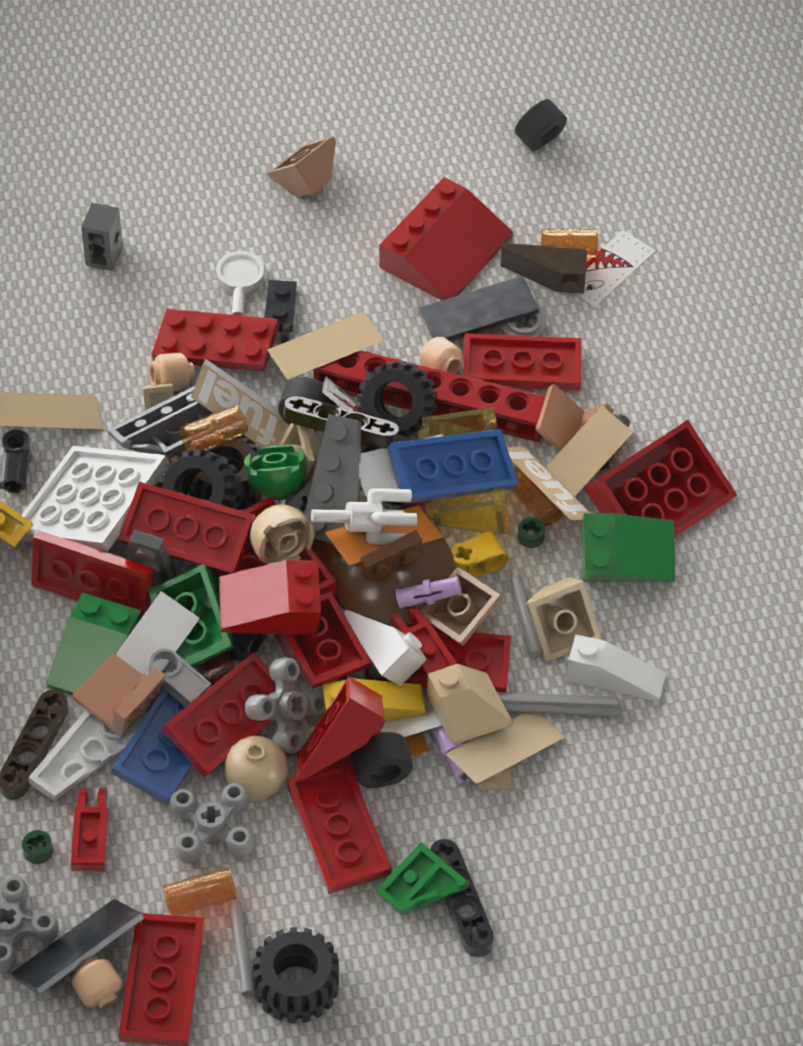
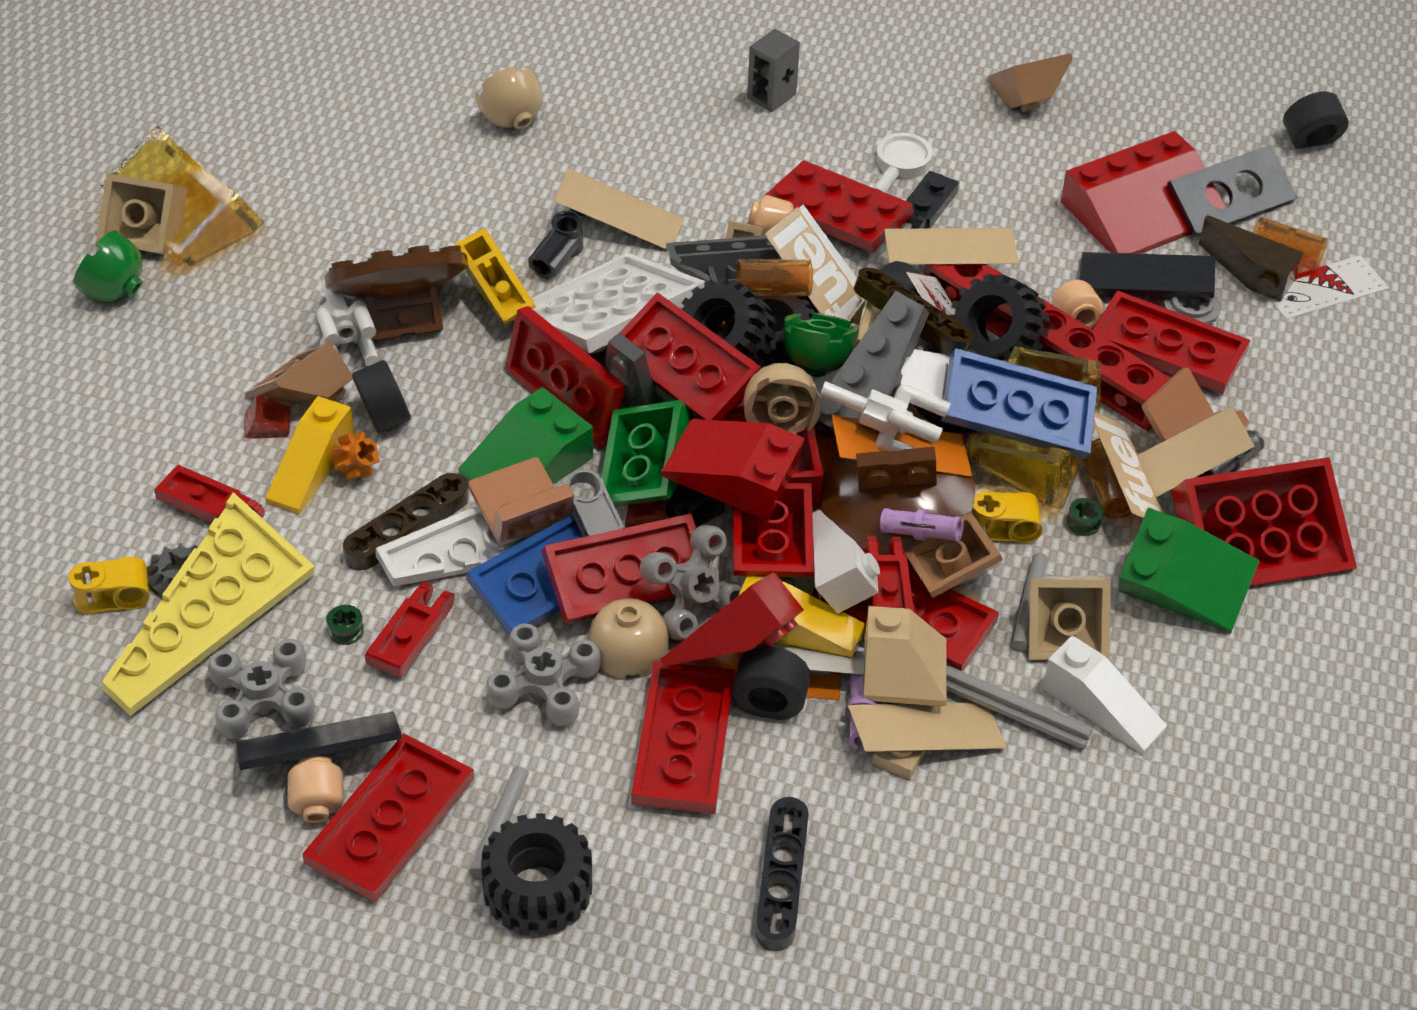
camera: 25 degrees right, 5 degrees down
(161, 627) = (604, 449): white sticker -> none
(199, 892) = (486, 740): clear orange pin -> none
(420, 881) = (740, 833): green wing -> none
(478, 224) = (1261, 164): none -> piece

